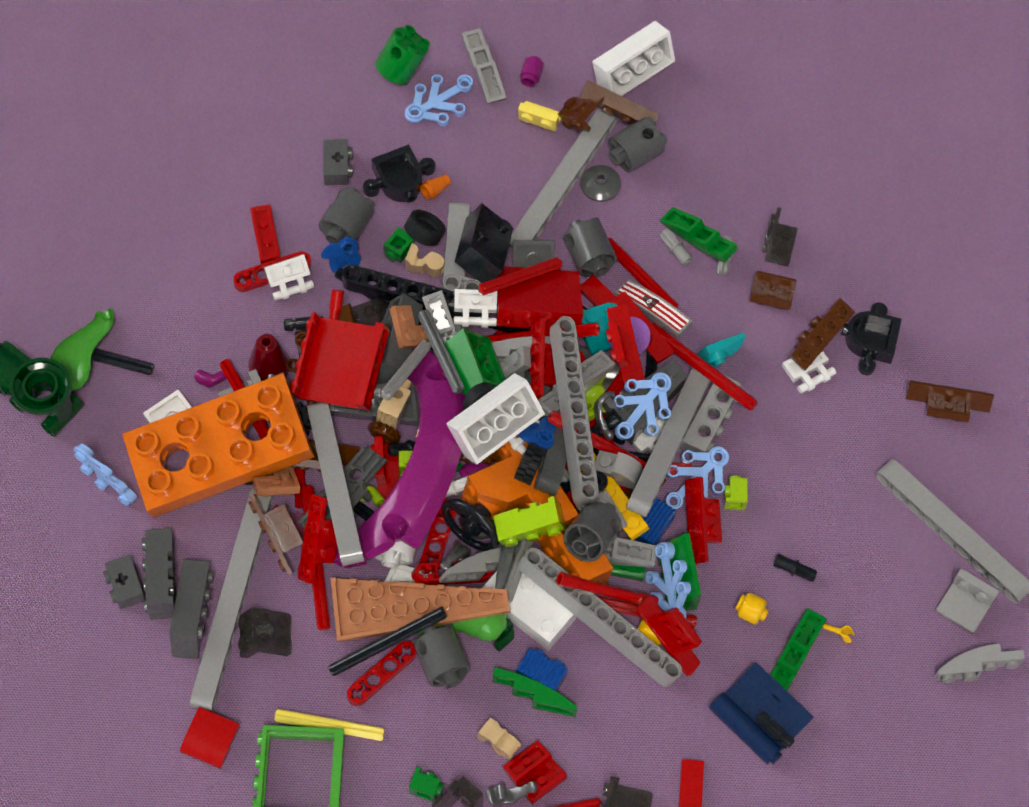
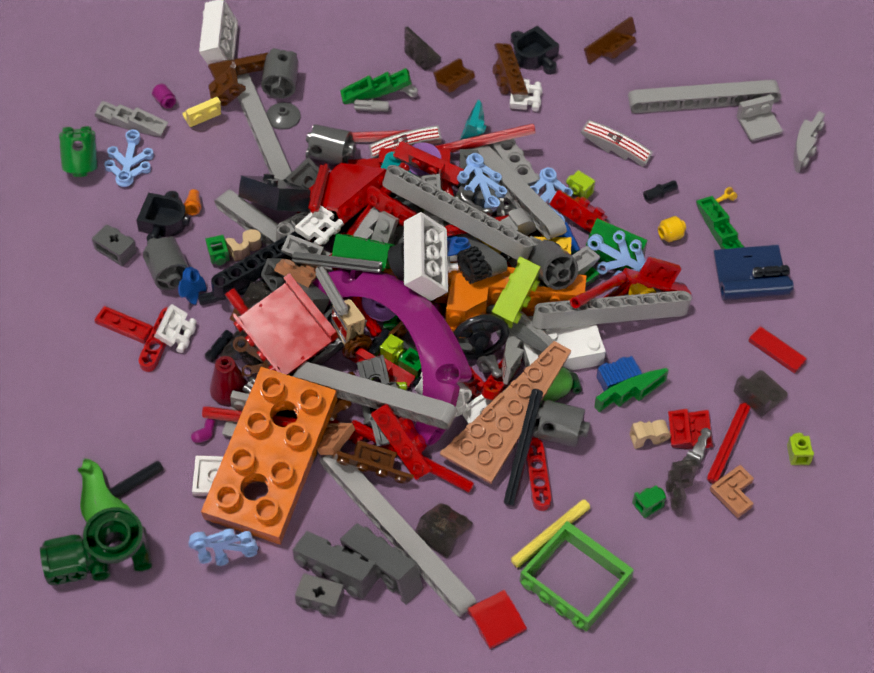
camera: 50 degrees left, 10 degrees down
(424, 227) = (220, 224): black tyre -> none
(818, 489) = (610, 139): none -> slope

